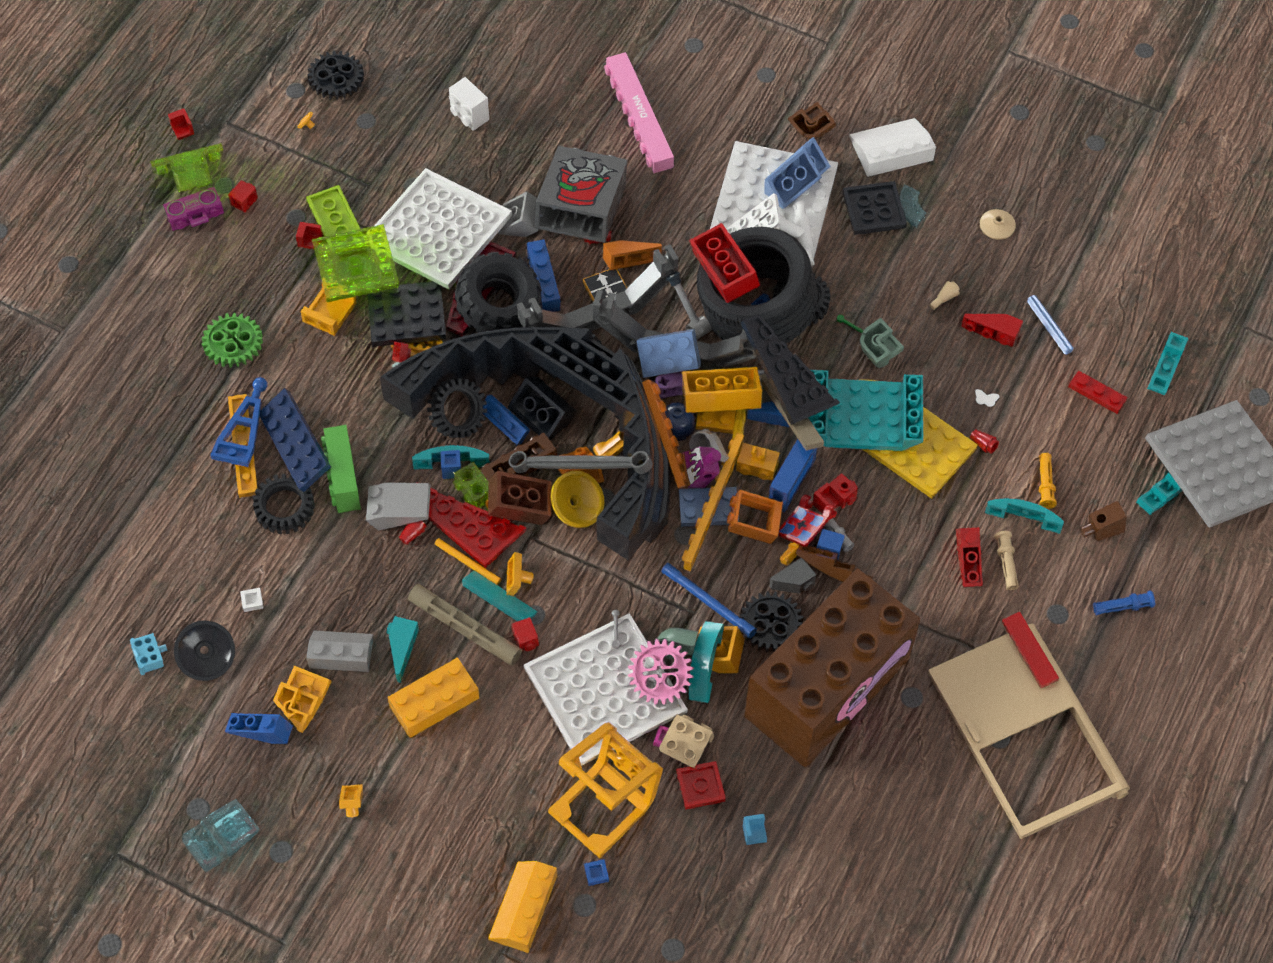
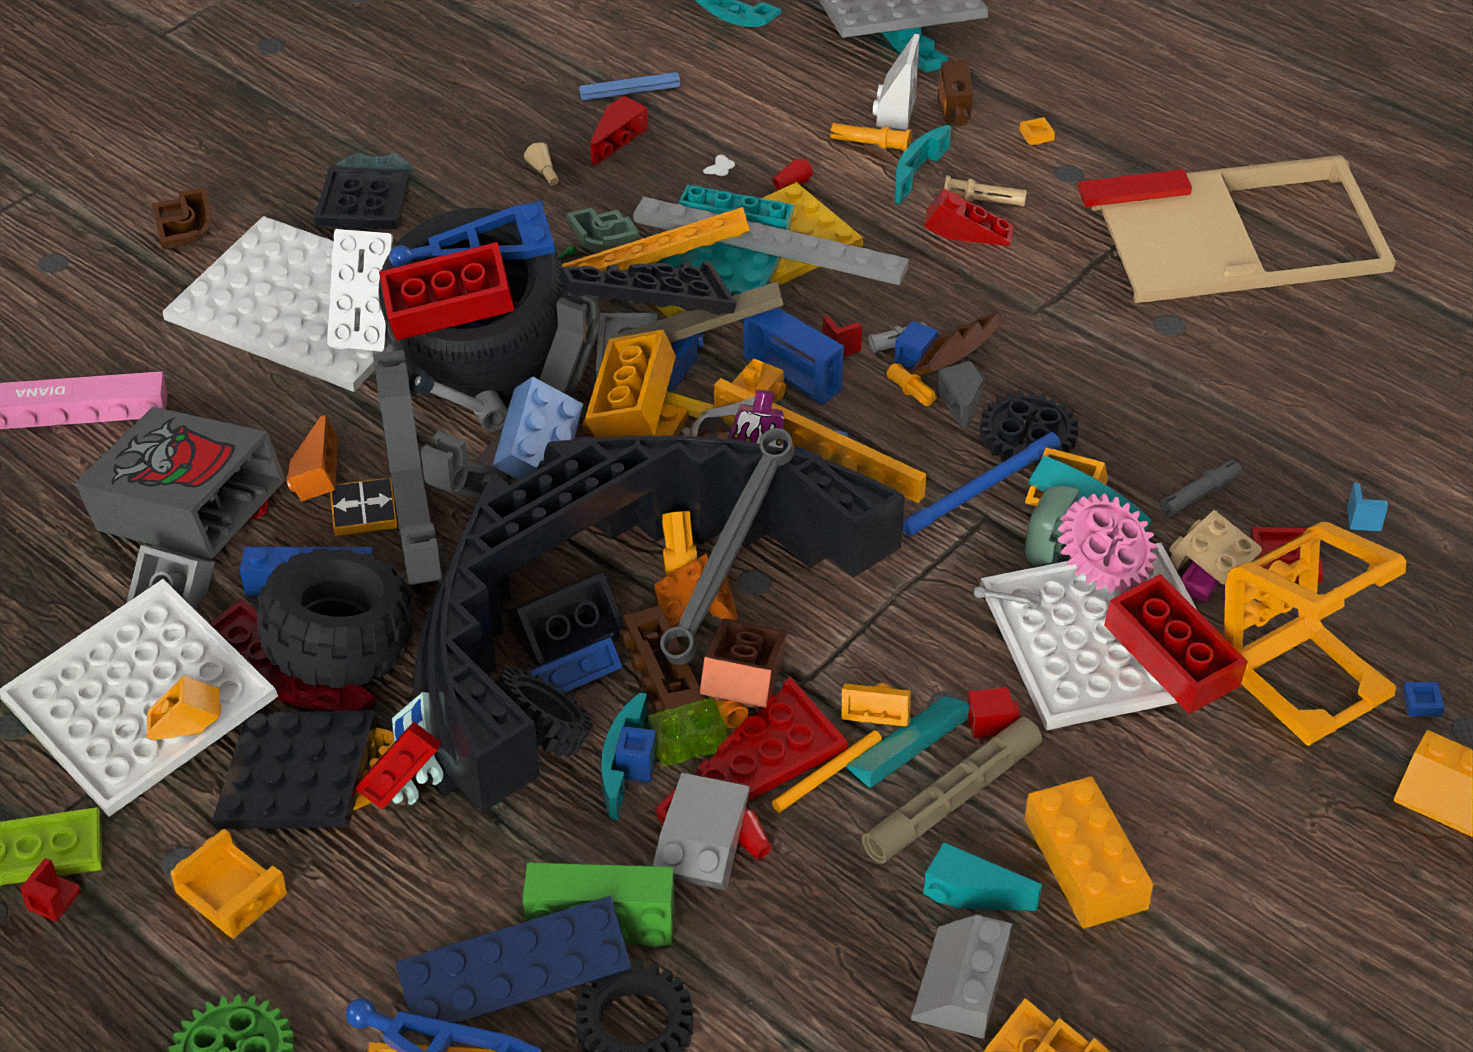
camera: 75 degrees left, 15 degrees down
(351, 799) = (1269, 994): light orange tile -> none
(355, 263) = (171, 803): clear neon green piece -> none
(419, 250) = (184, 710): none -> light orange slope
(584, 493) = (763, 600): yellow dish -> none
(598, 705) = (1175, 643): none -> red brick
(755, 735) = (1209, 483): none -> dark grey pin
(758, 502) = (863, 410): orange window -> none
(791, 289) = (531, 226): none -> blue plate
(797, 173) = (272, 249): medium blue slope -> none
(805, 524) = (880, 362): red flag -> none
(831, 667) = (1151, 348): reddish brown brick -> none
(843, 490) = (834, 307): red brick -> none
(853, 367) = (670, 242): none -> light orange plate
(889, 438) = (783, 243): none -> light grey plate
(893, 146) = (264, 159): white slope -> none
(994, 229) = (444, 100): tan dish -> none
(1091, 583) = (1037, 131): none -> light orange plate
(1092, 487) = (898, 92): none -> white slope
(1097, 392) = (749, 71): red plate -> none
(1132, 602) = (1071, 104): blue pin -> none

